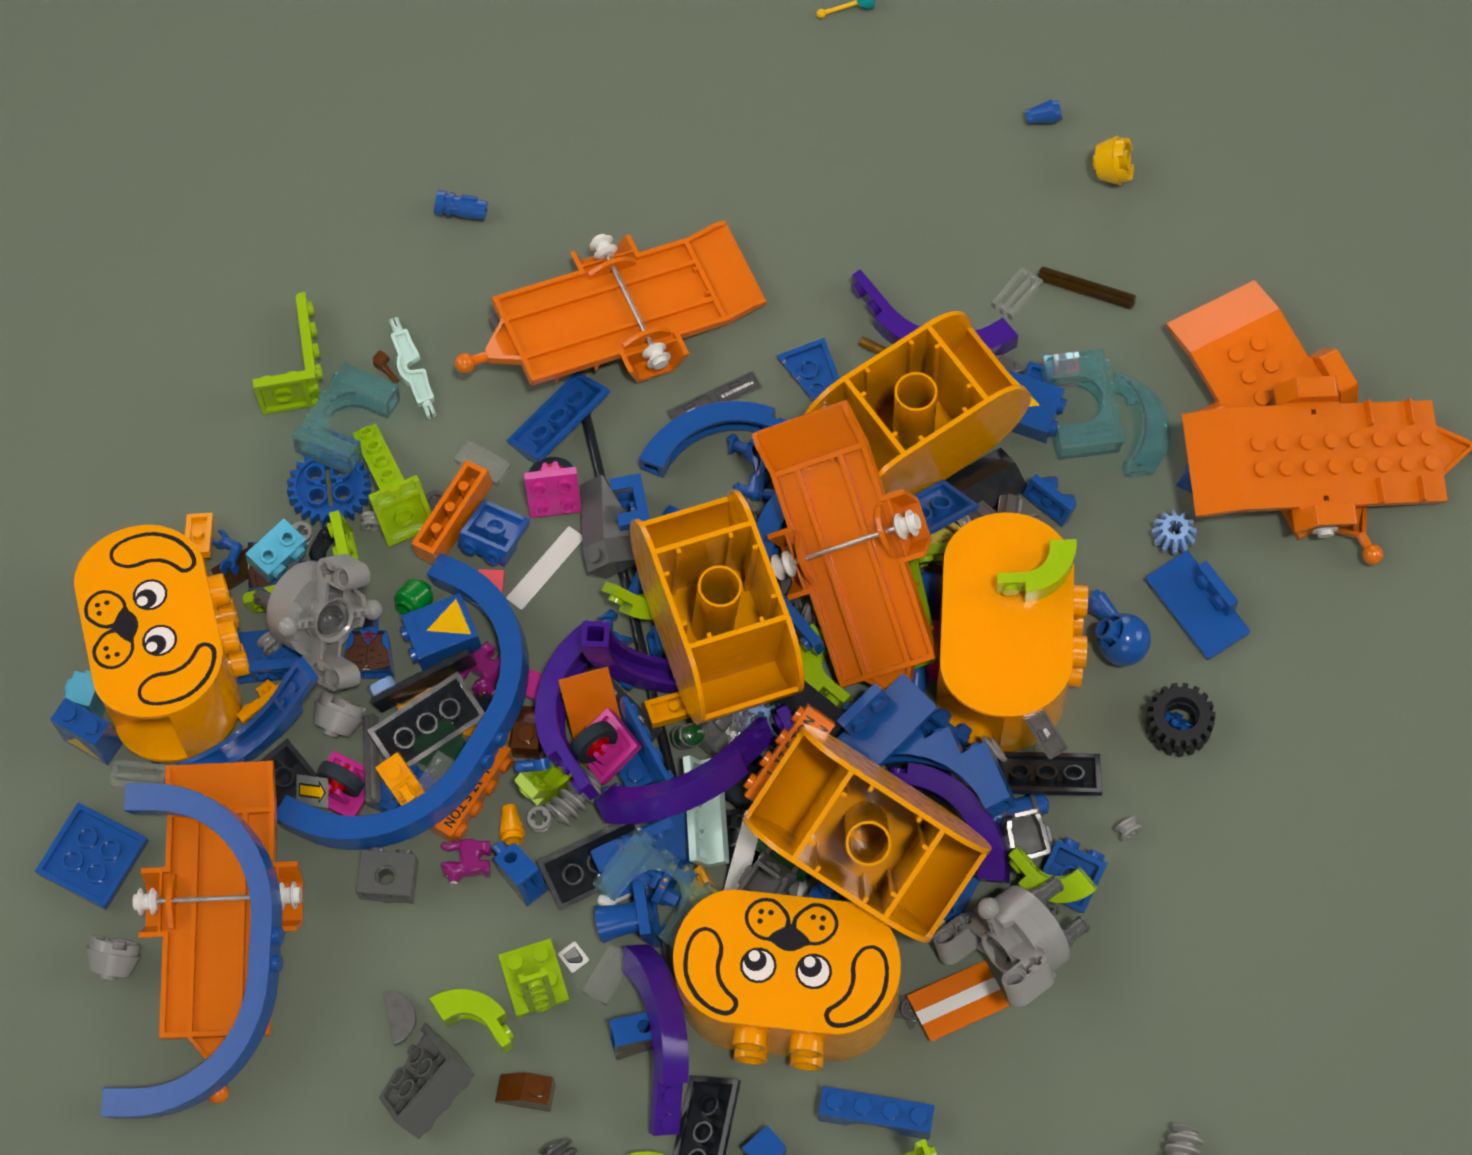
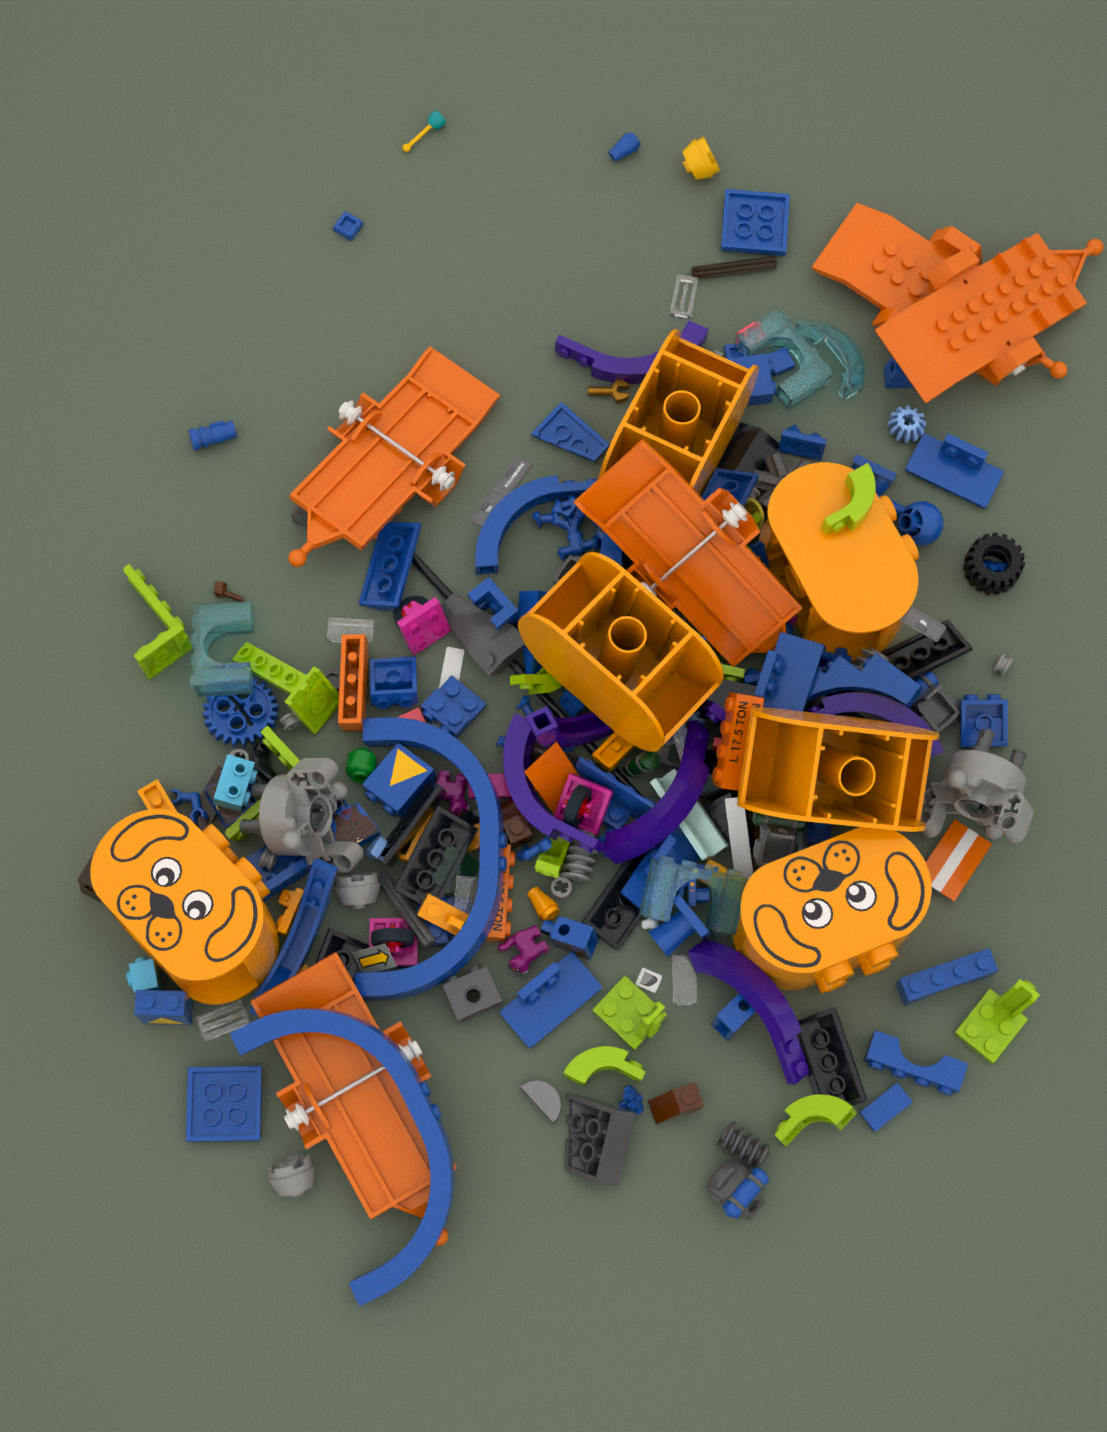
camera: 35 degrees left, 5 degrees up
(417, 378) = (258, 590): light aqua piece -> none
(462, 921) = (550, 999): none -> blue bracket
(484, 1064) = (632, 1100): none -> blue plant
(537, 587) = (452, 707): none -> blue plate
(716, 64) = (348, 226): none -> blue tile
(1076, 884) = (967, 739): lime arch -> none
(1079, 405) = (781, 361): none -> blue tile
(1114, 573) = (882, 476): none -> blue tile
(1136, 251) = (755, 222): none -> blue plate

